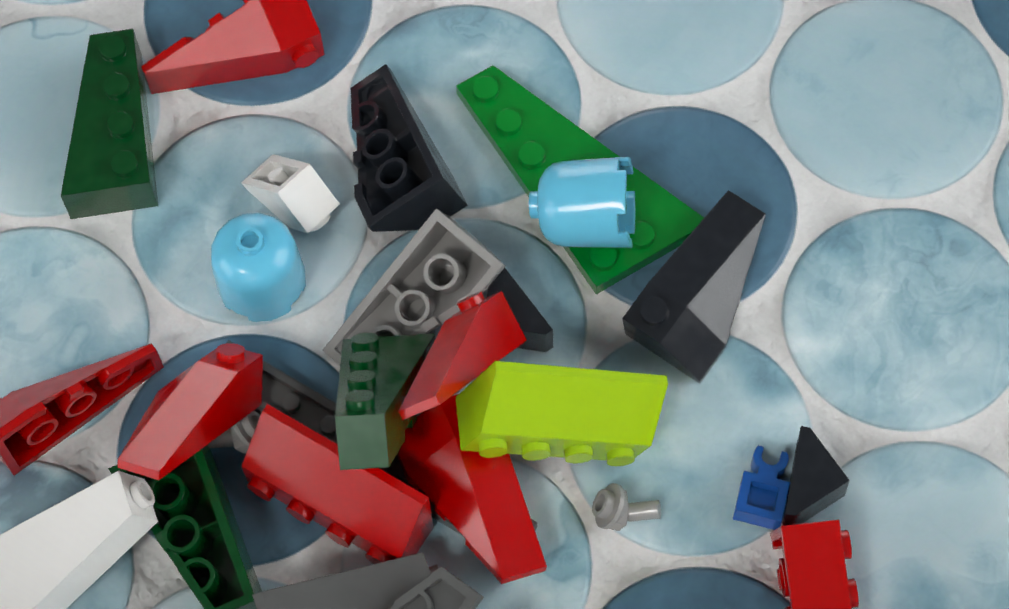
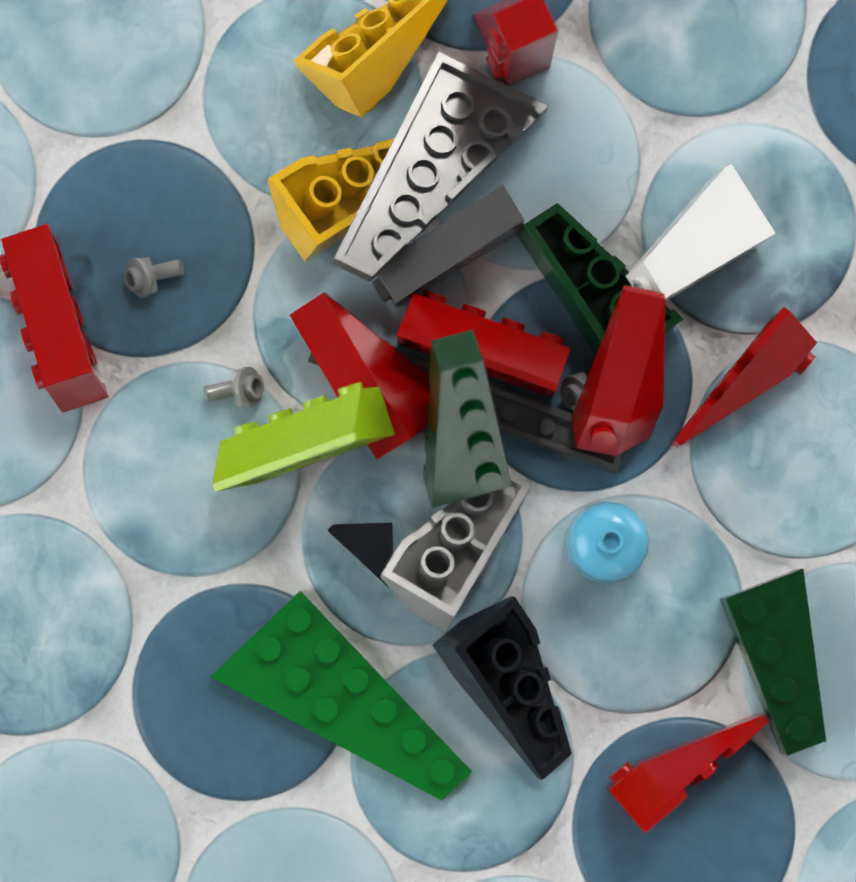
camera: 165 degrees right, 20 degrees up
(292, 193) = (598, 627): white slope -> none
(463, 350) = (396, 465): red wedge -> none
(586, 203) = (320, 651): medium azure cylinder -> none
(696, 293) = (206, 599): black wedge -> none
(762, 493) = (119, 422): blue plate -> none
(814, 480) = (79, 442): black slope -> none

